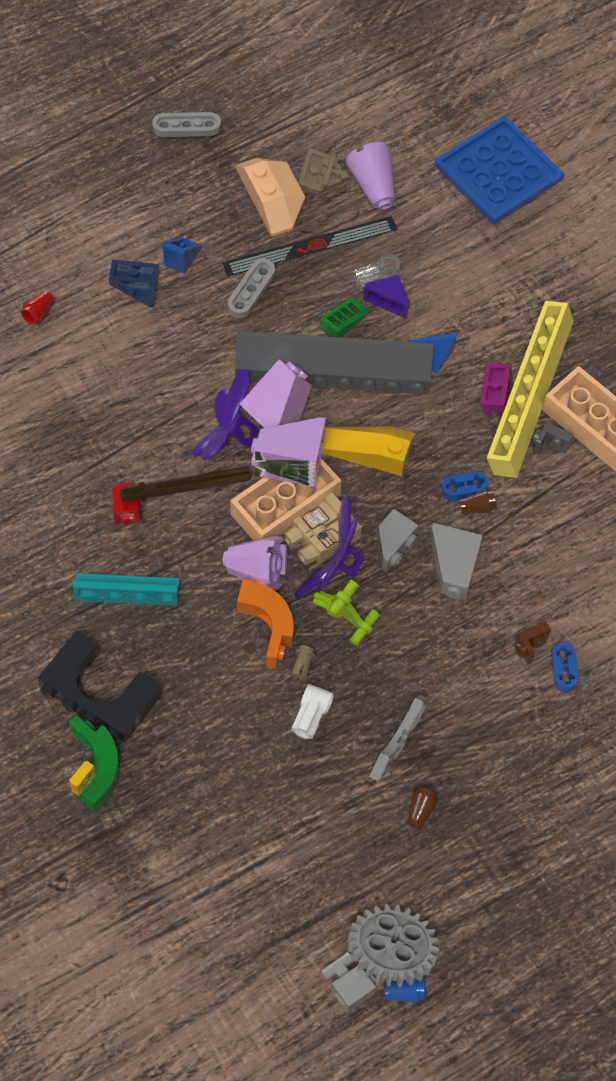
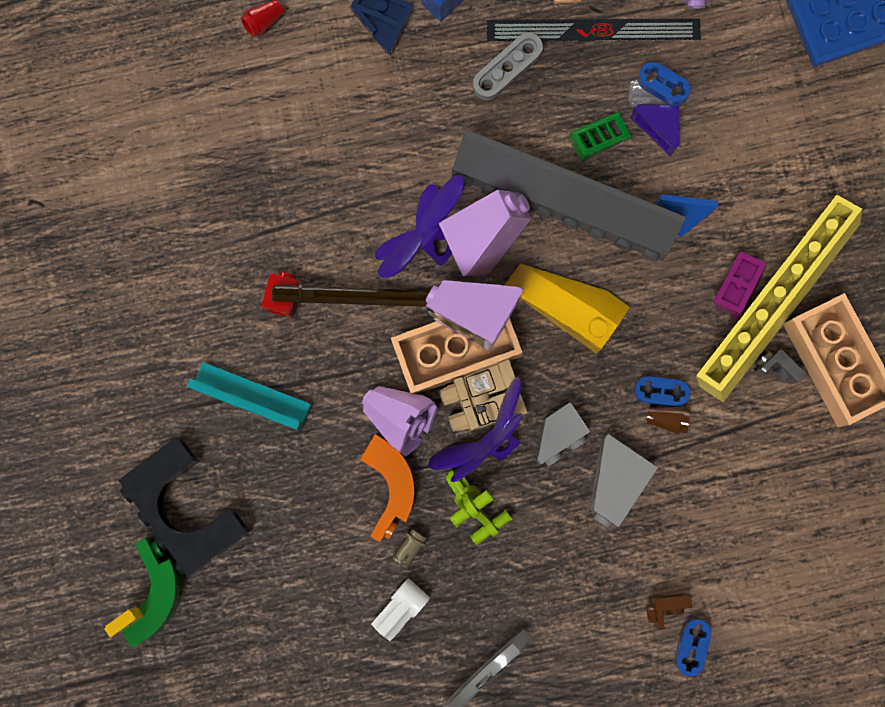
camera: 20 degrees right, 20 degrees up
(380, 262) = (667, 79): none -> blue beam

